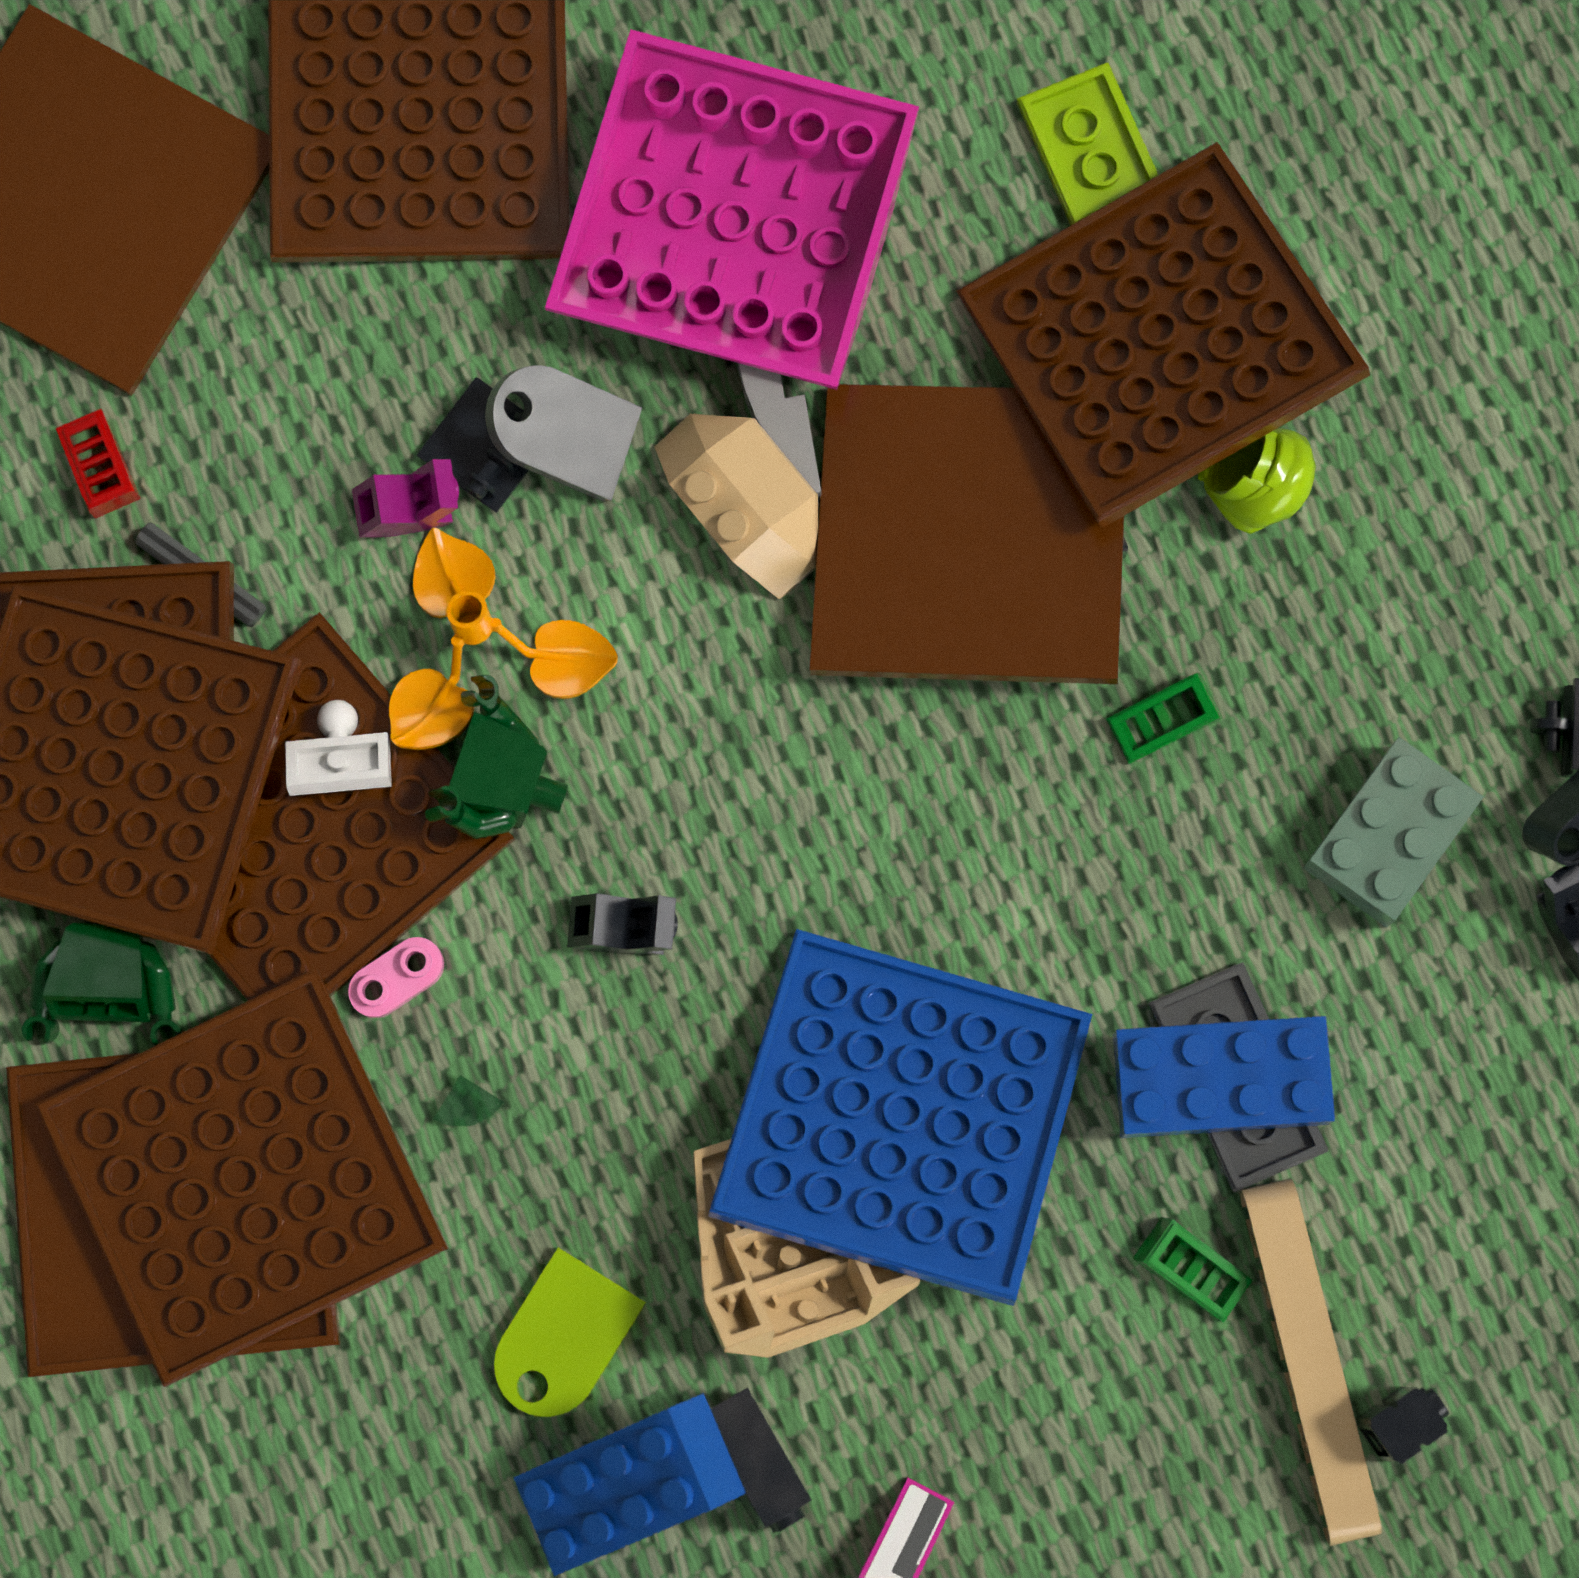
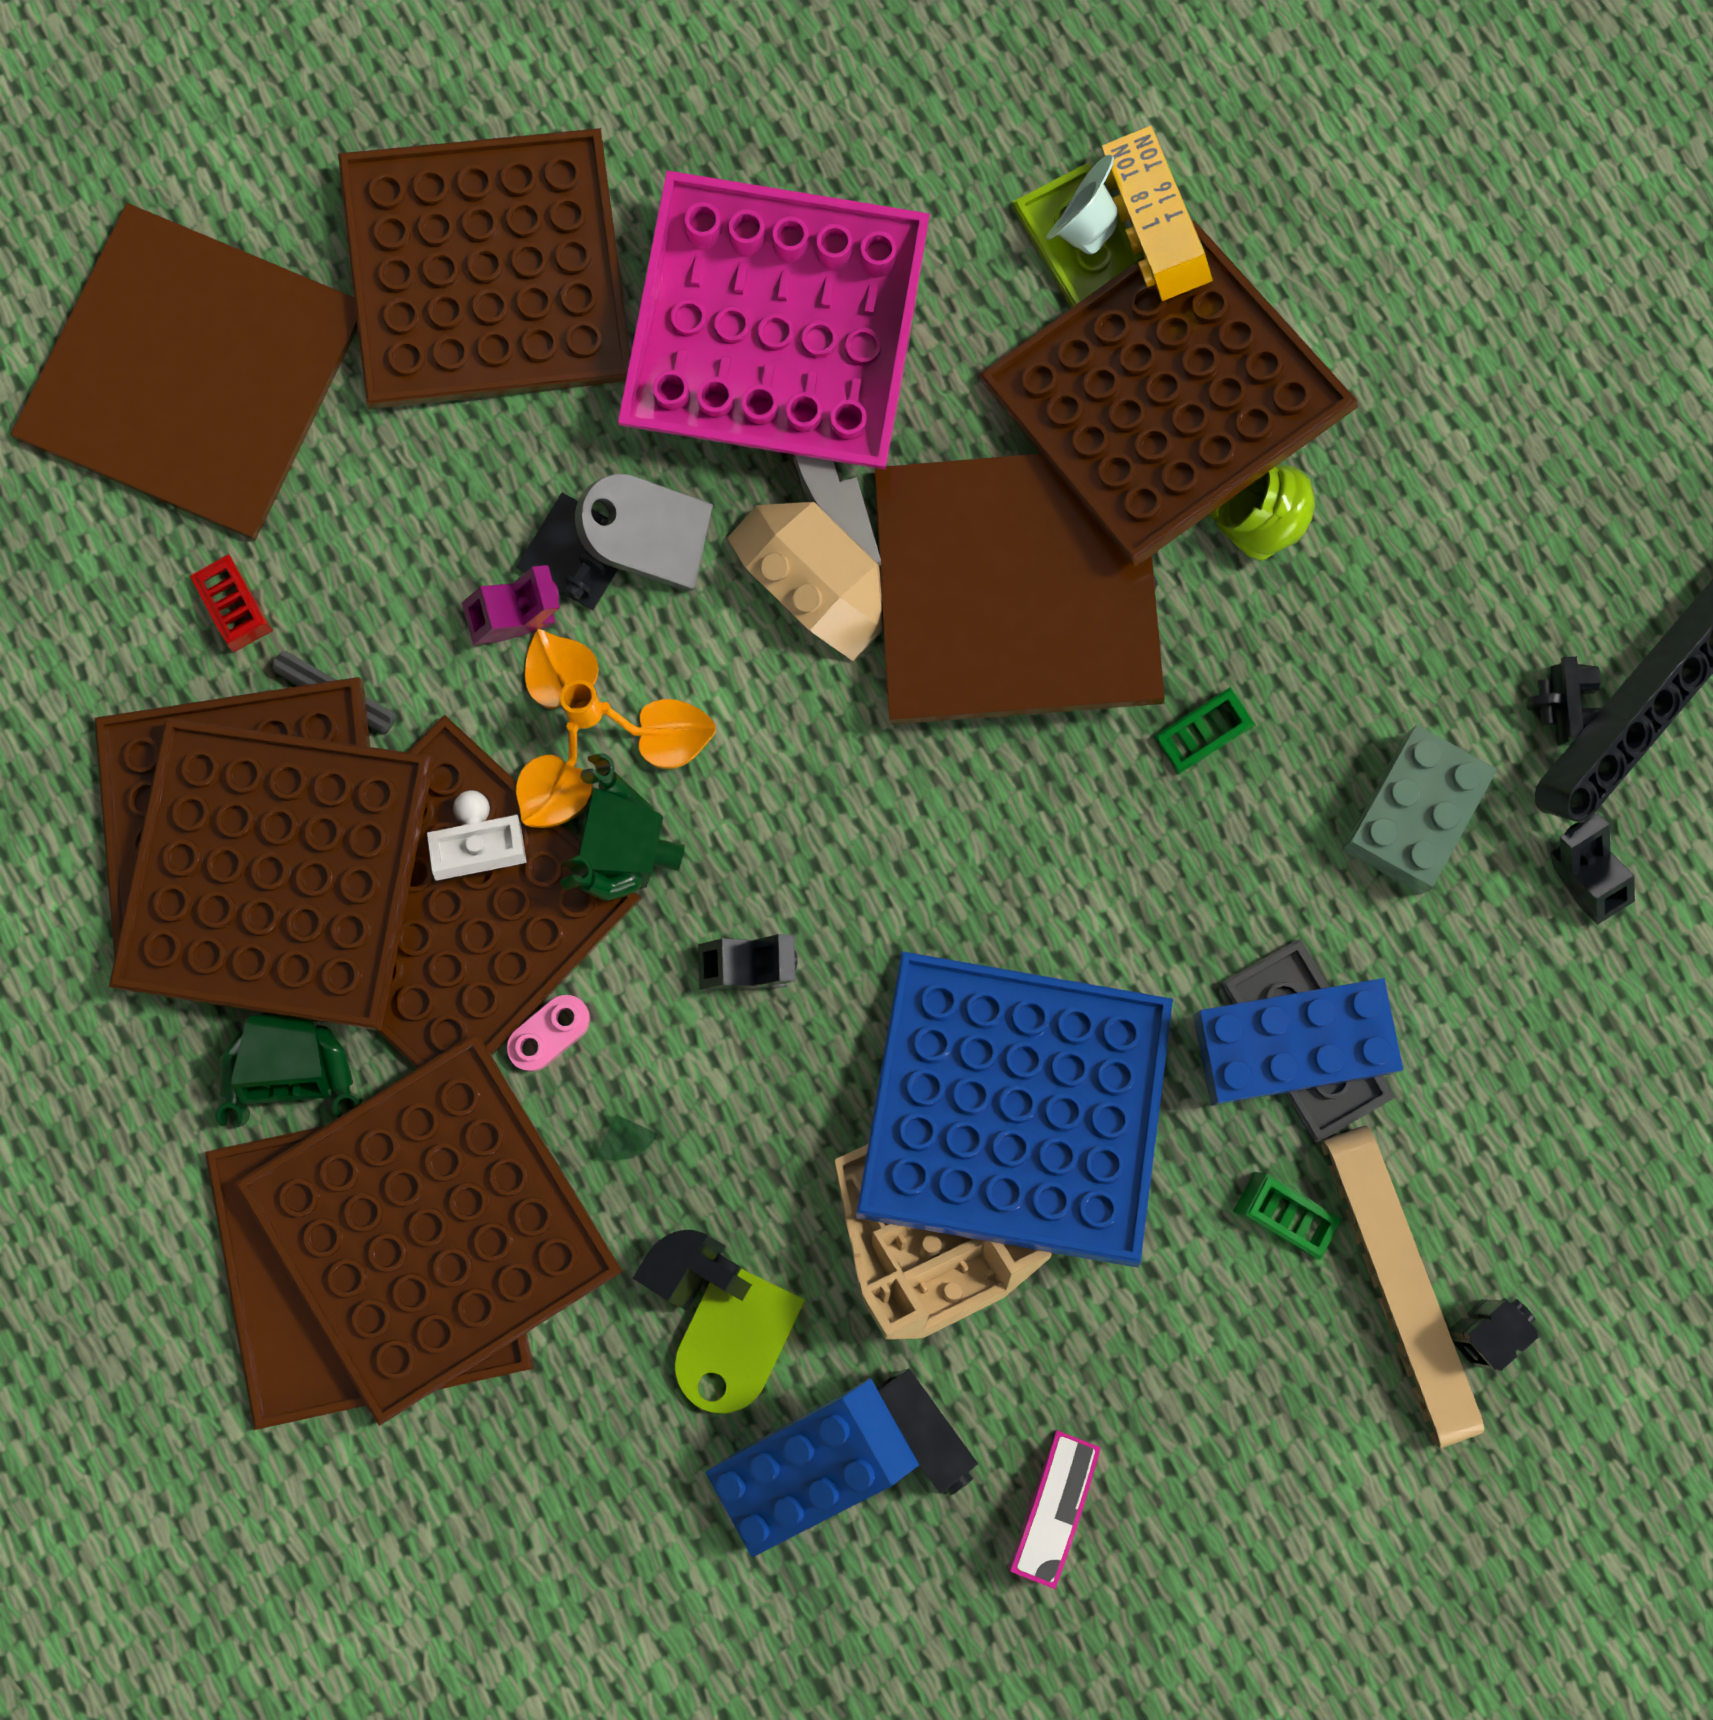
camera: 15 degrees left, 0 degrees up
(515, 1246) = (682, 1263): none -> black brick
(1101, 123) = (1090, 213): none -> light aqua piece
(1173, 131) = (1157, 215): none -> yellow brick

